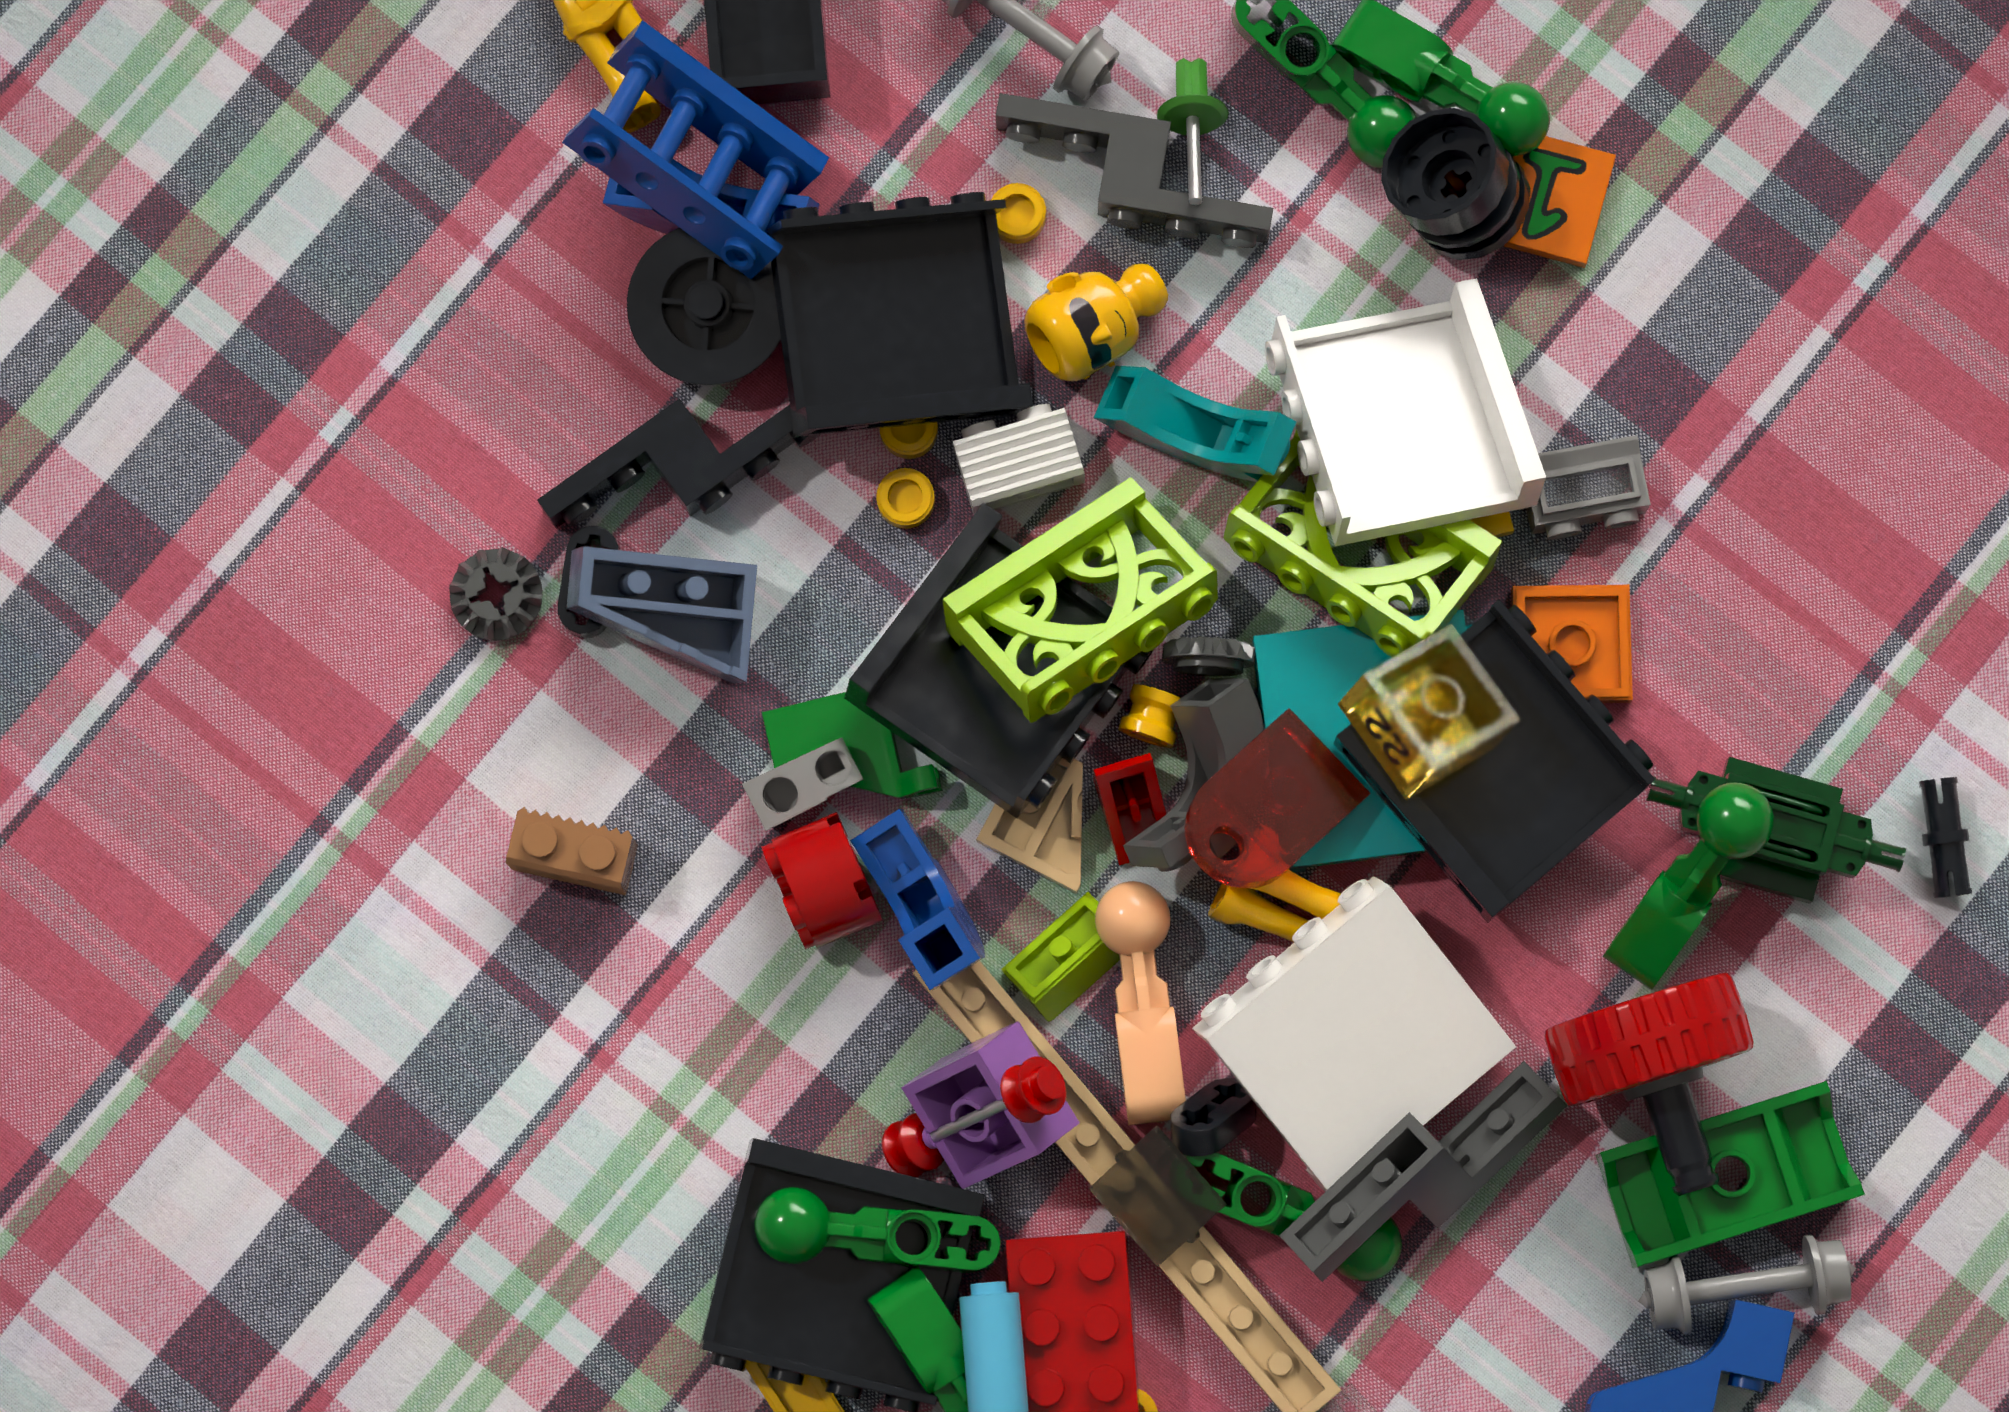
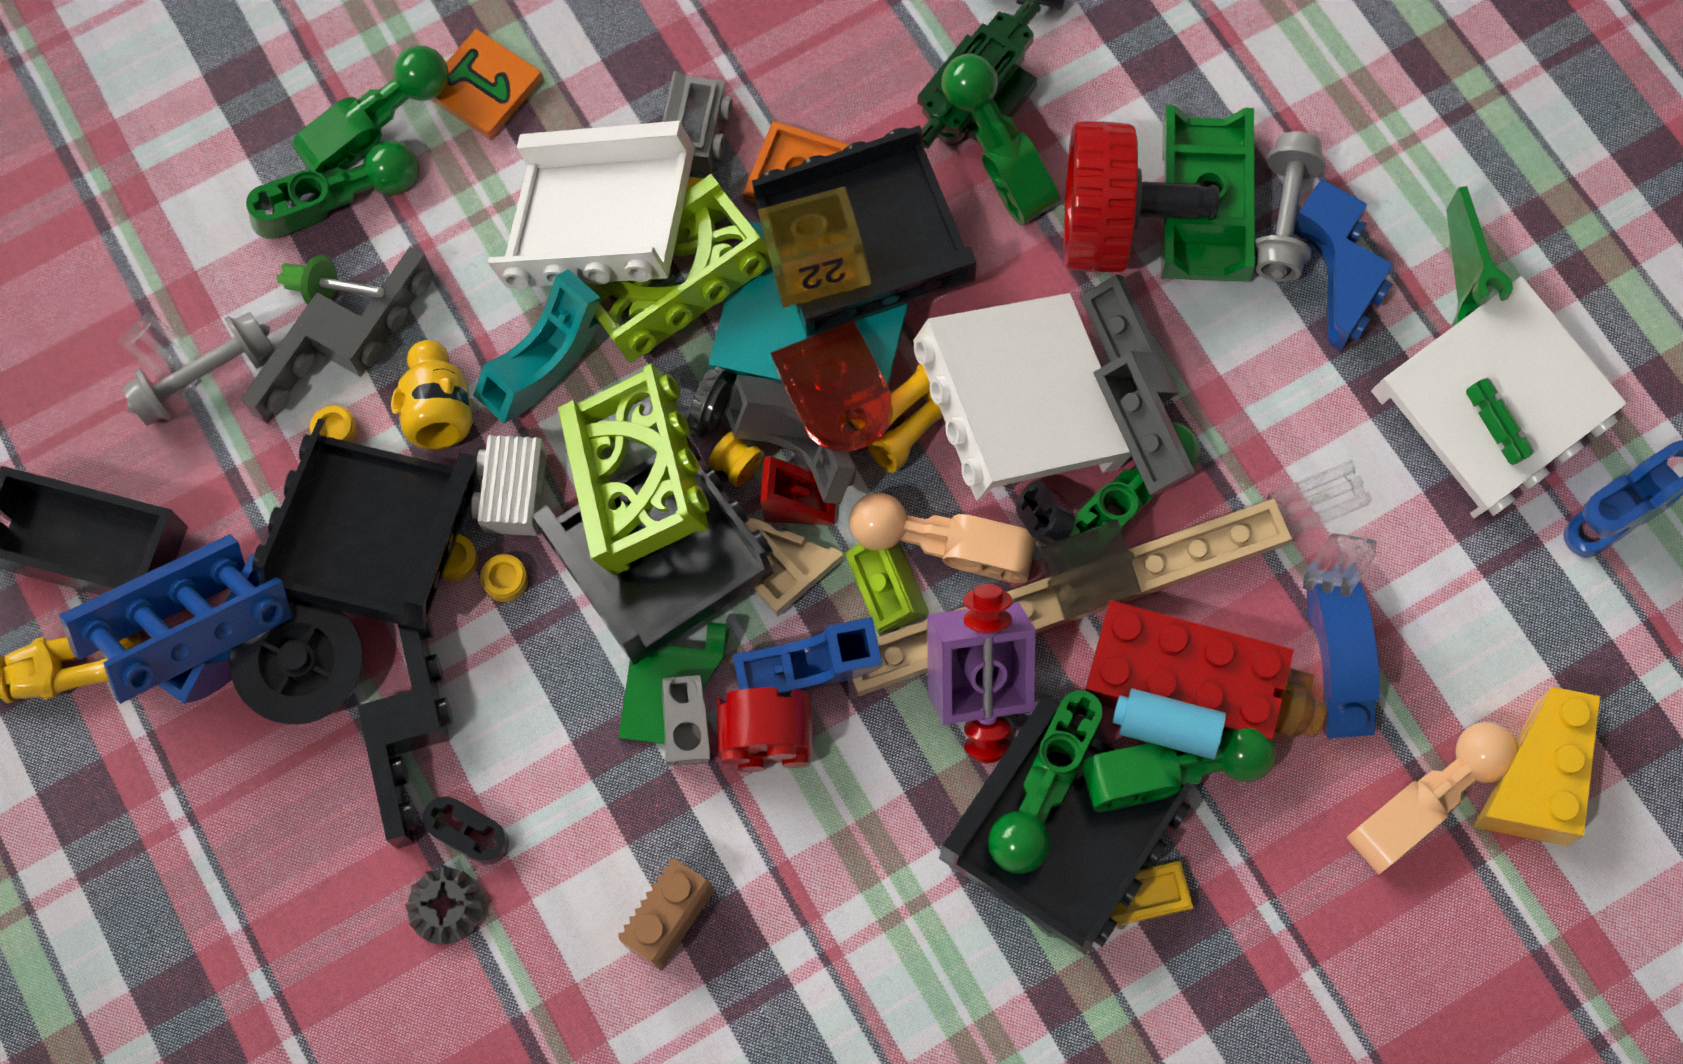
camera: 70 degrees left, 10 degrees down
(670, 603) = (509, 767): sand blue wedge -> none
(1455, 184) = (448, 120): black wheel -> none

